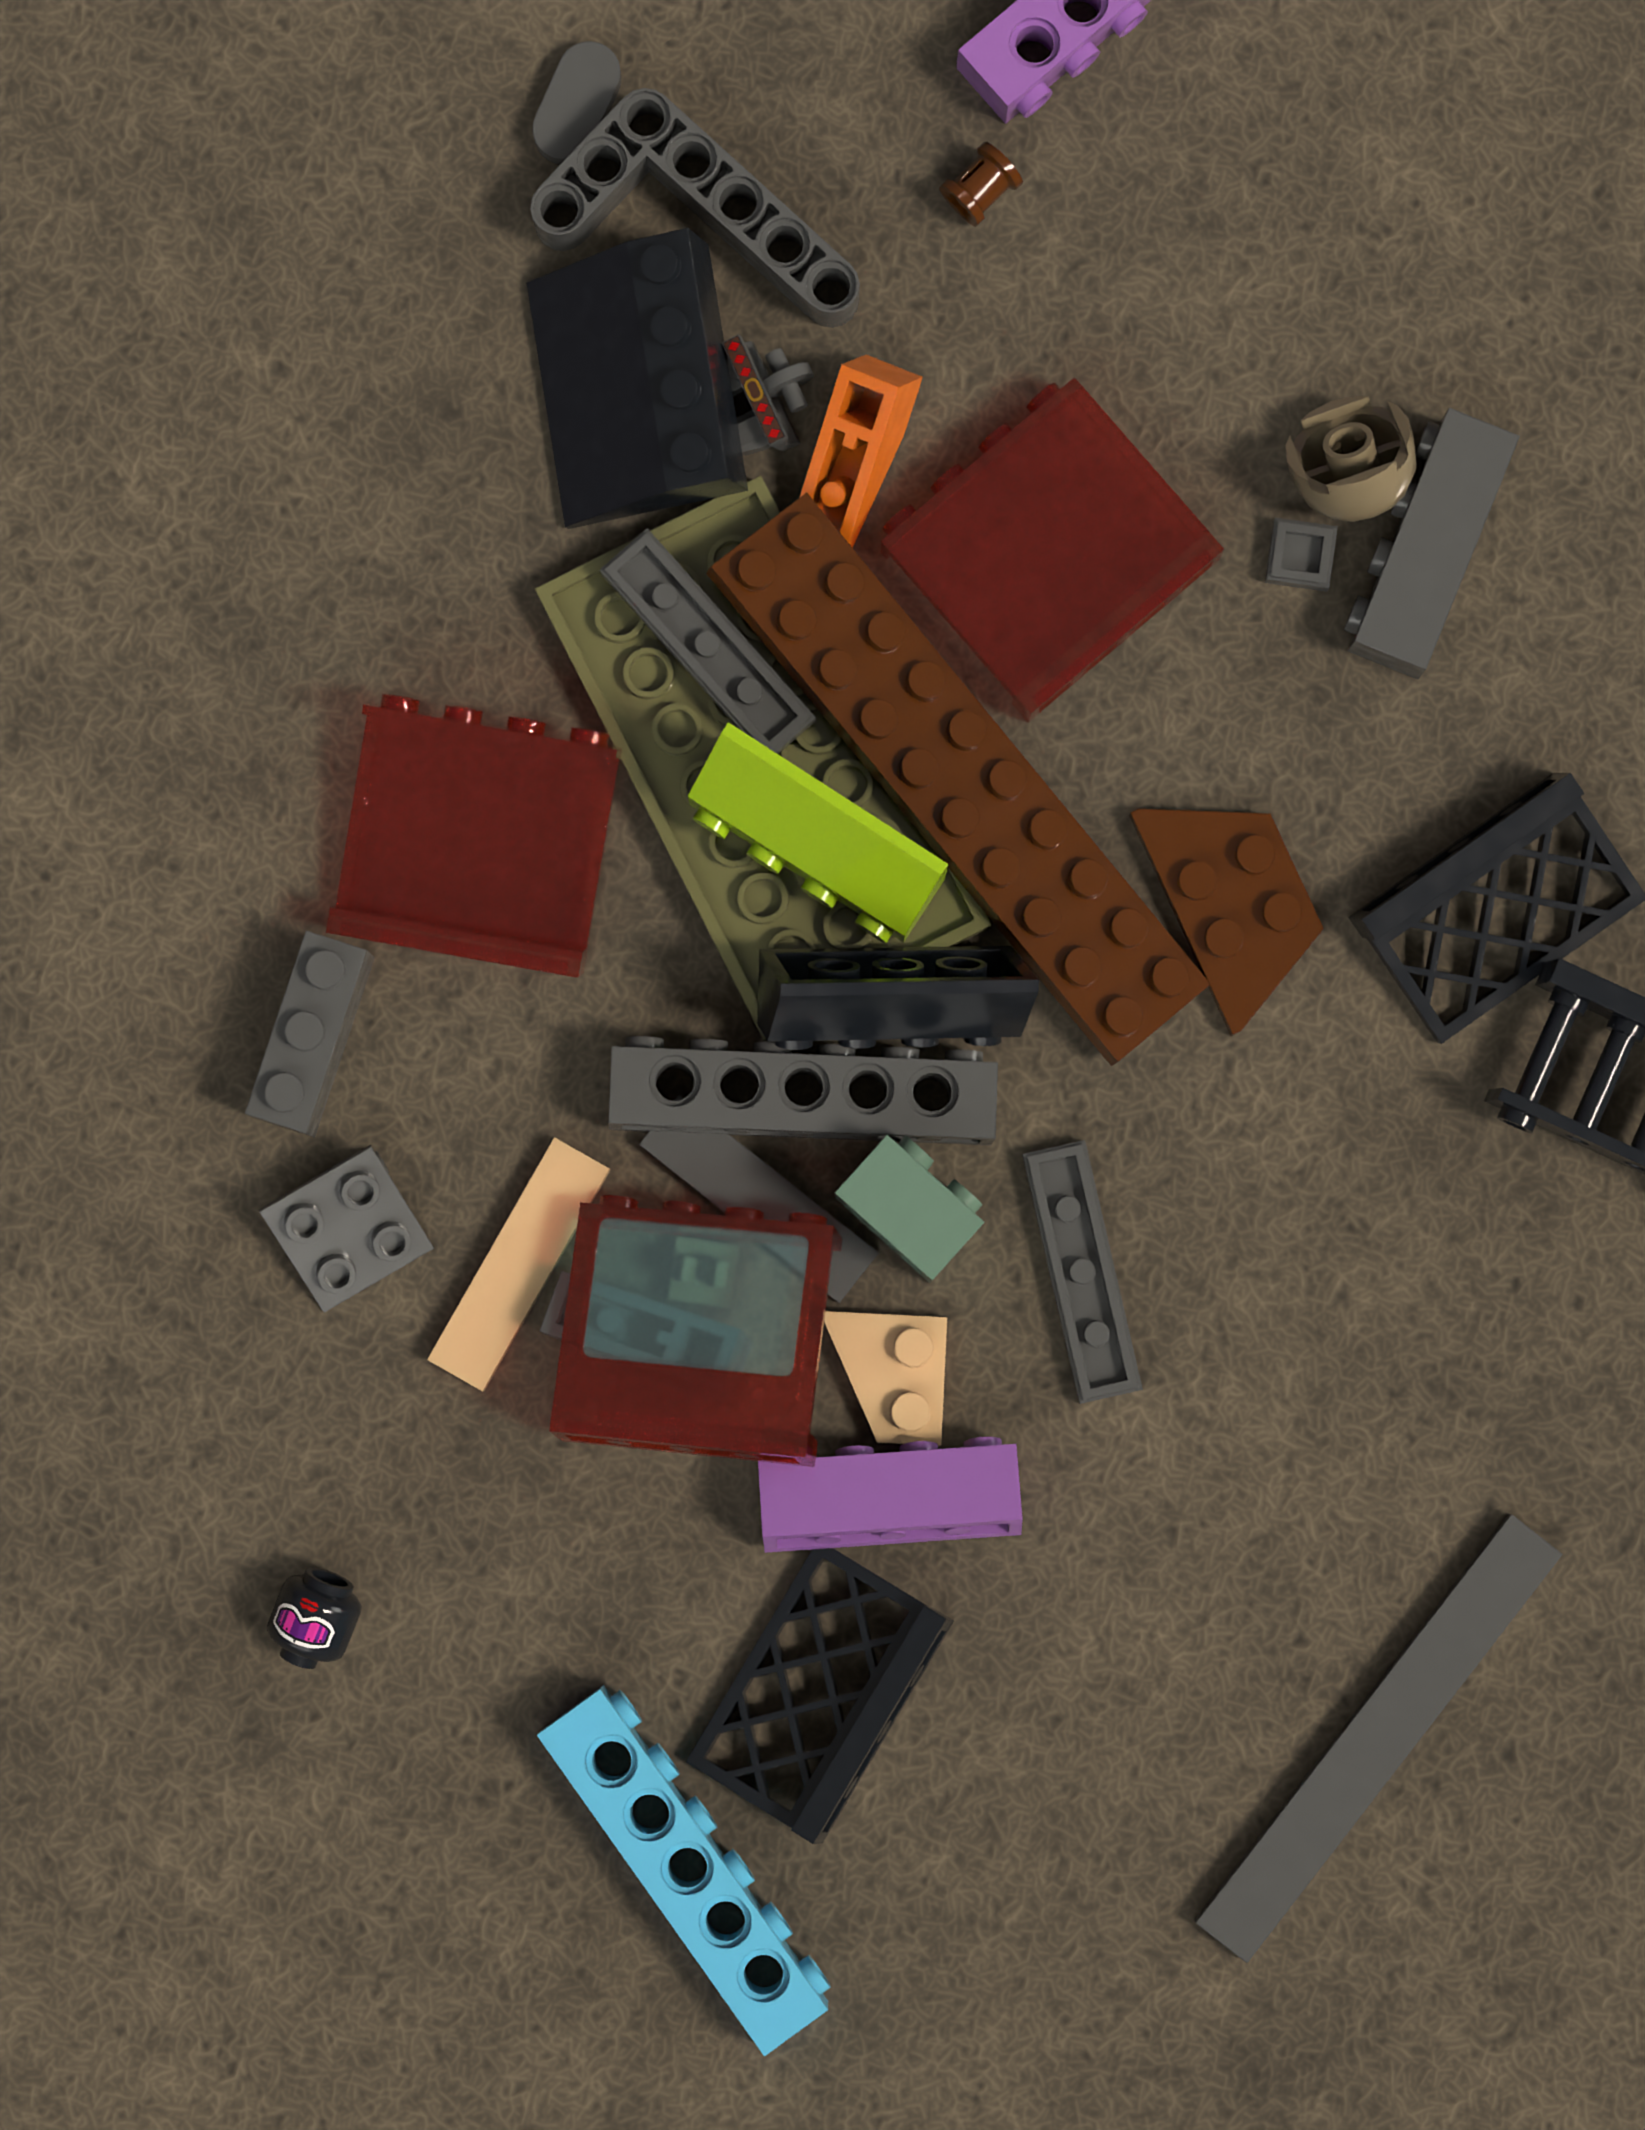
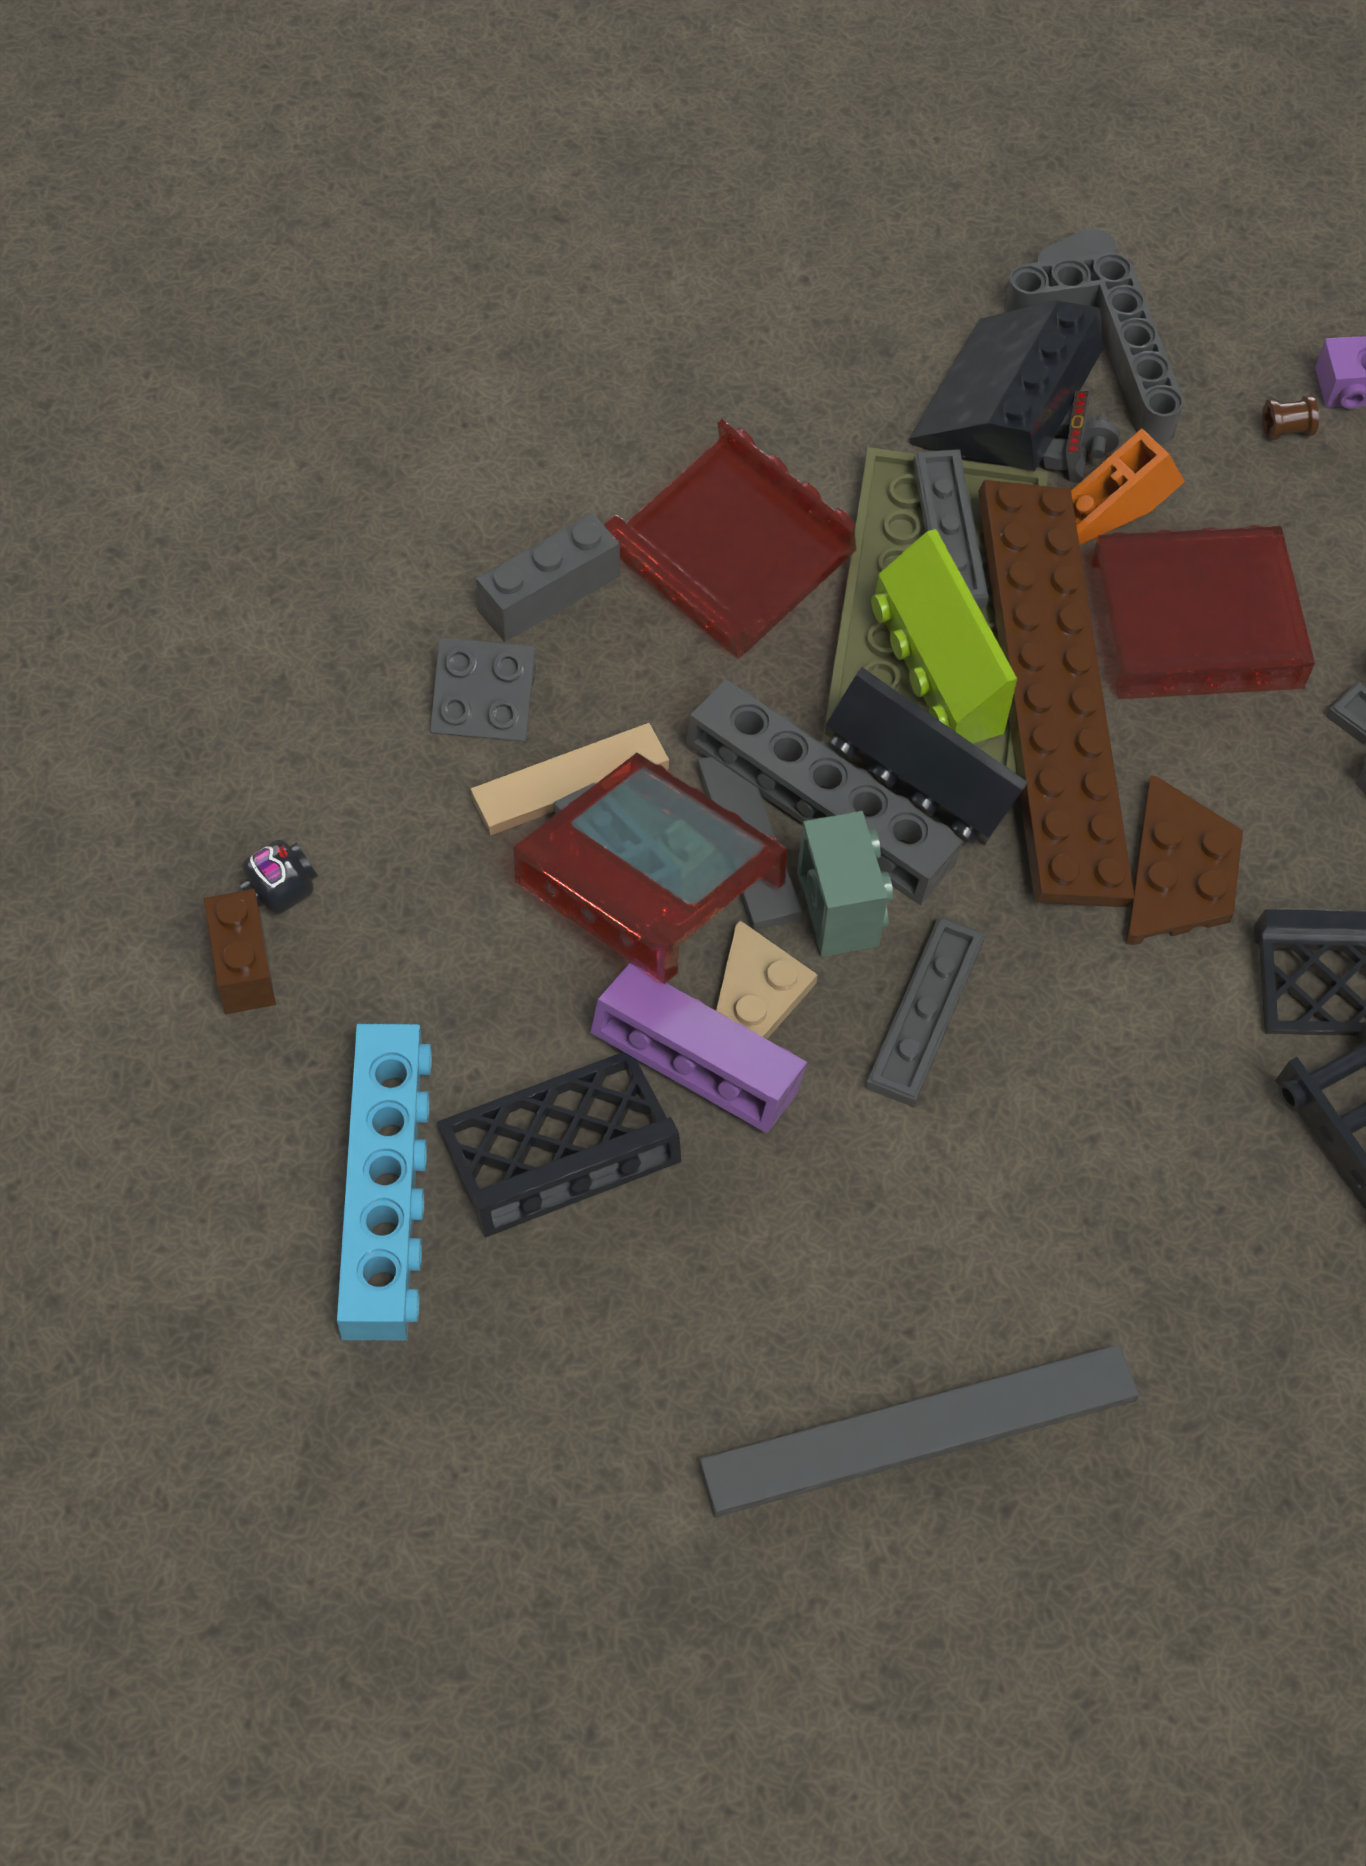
camera: 30 degrees right, 25 degrees down
(345, 1732) = (239, 951): none -> reddish brown brick

